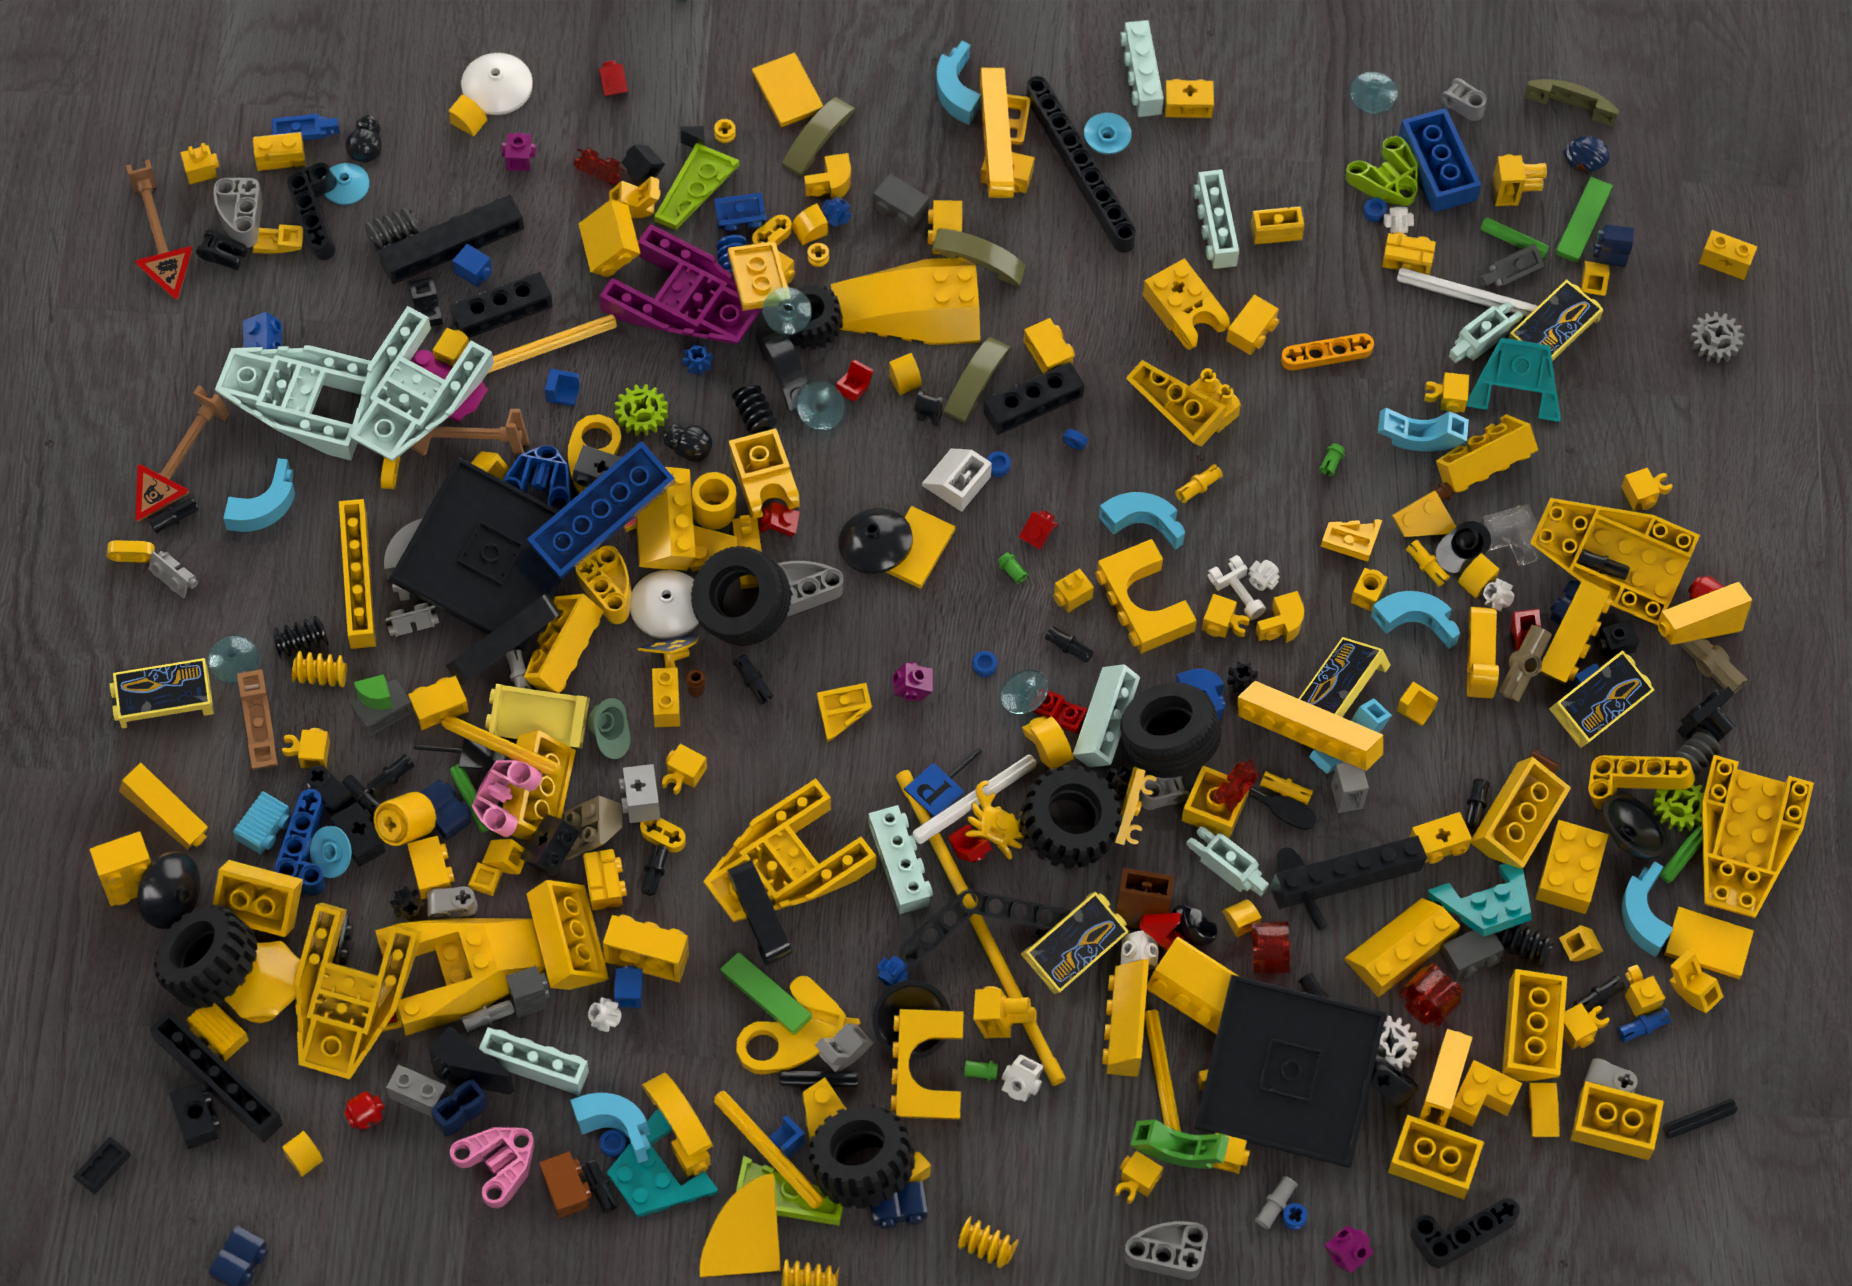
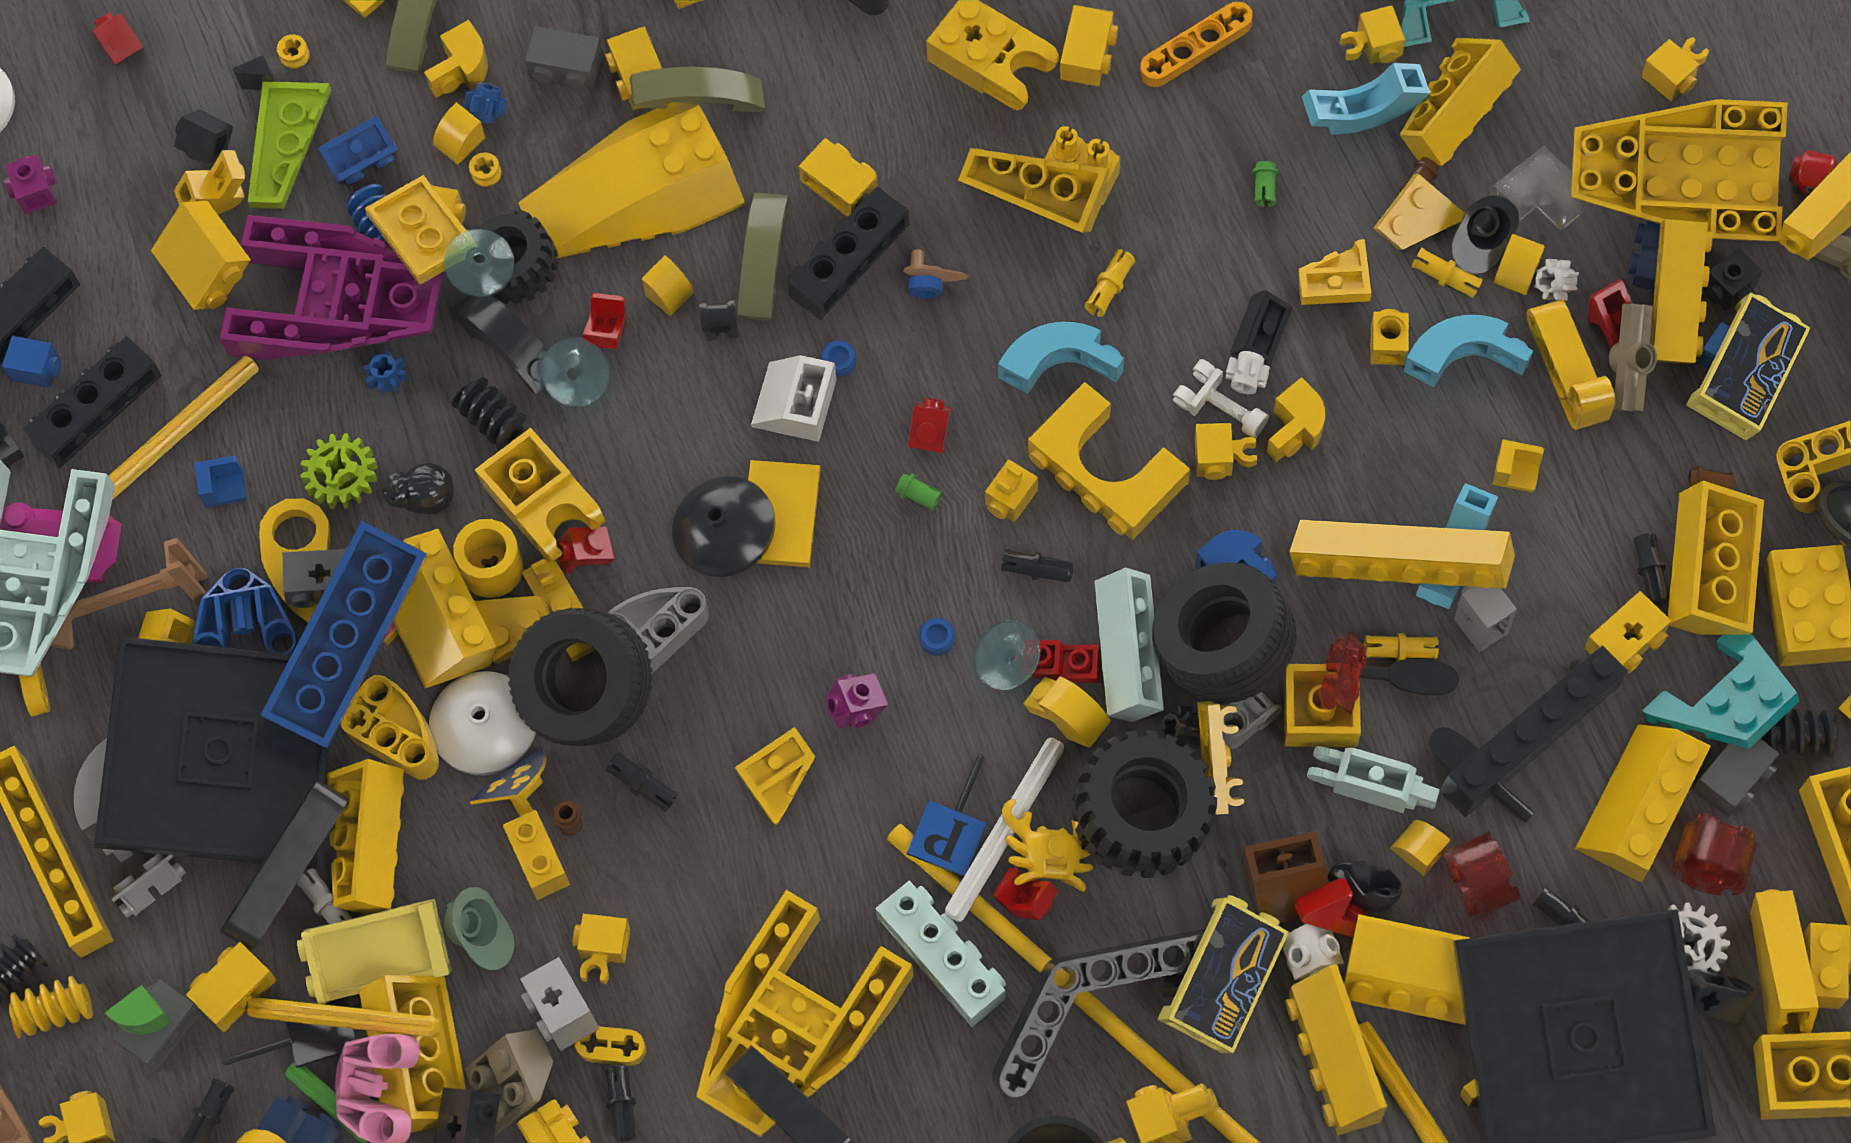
camera: 15 degrees left, 5 degrees up
(450, 346) = (47, 484): yellow brick -> none
(590, 161) = (130, 162): clear red hinge -> none
(771, 233) = (407, 161): yellow beam -> none
(892, 971) = (999, 1114): blue gear -> none
(1076, 425) = (918, 268): none -> medium nougat bar
(1236, 674) = (1282, 511): black gear -> none
(1289, 550) = (1262, 326): none -> black slope
(1344, 676) = (1412, 469): panel -> none
(1604, 564) = (1677, 188): black axle -> none

